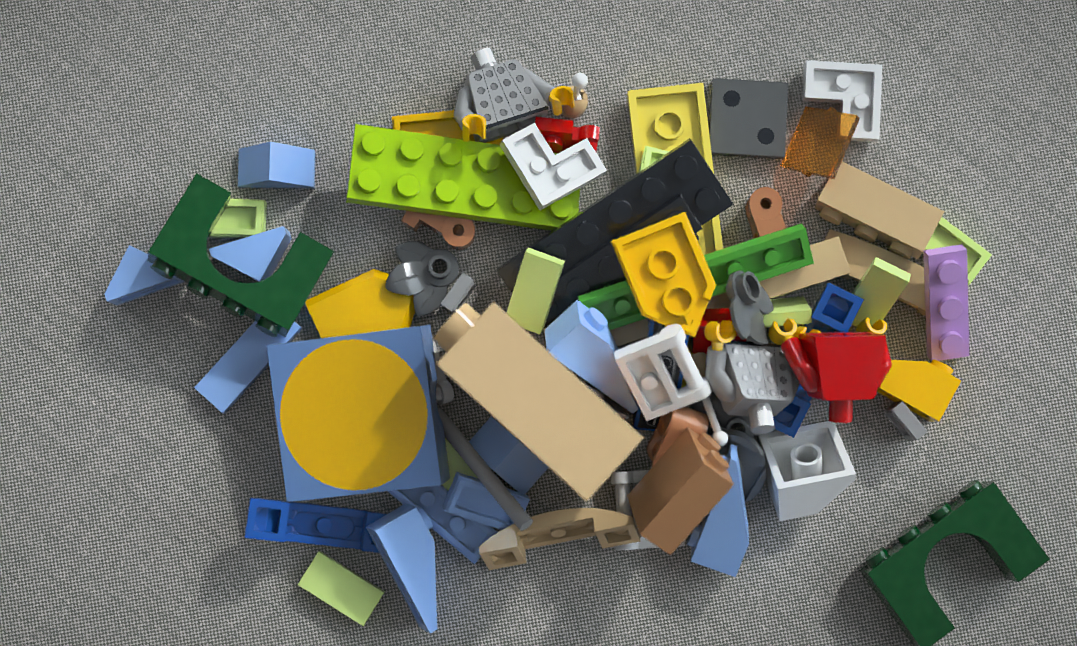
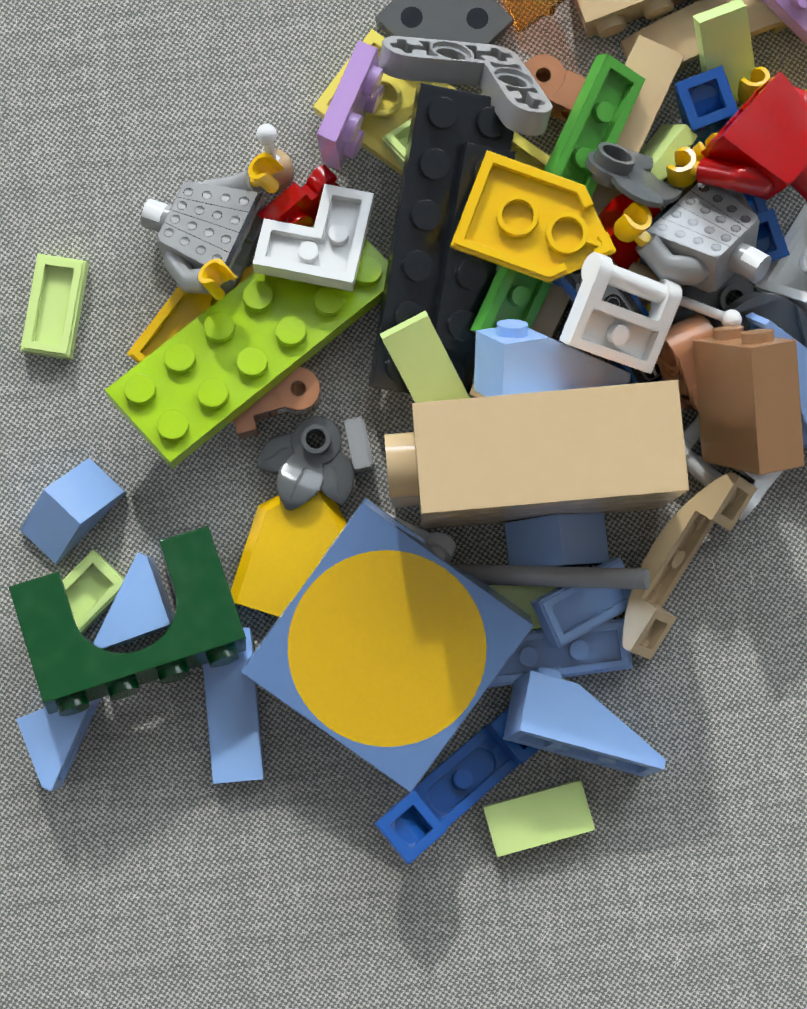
camera: 35 degrees left, 0 degrees up
(381, 52) = (54, 306): none -> yellowish green tile
(649, 109) = (354, 97): none -> lavender plate
(741, 168) = (493, 68): none -> light grey beam

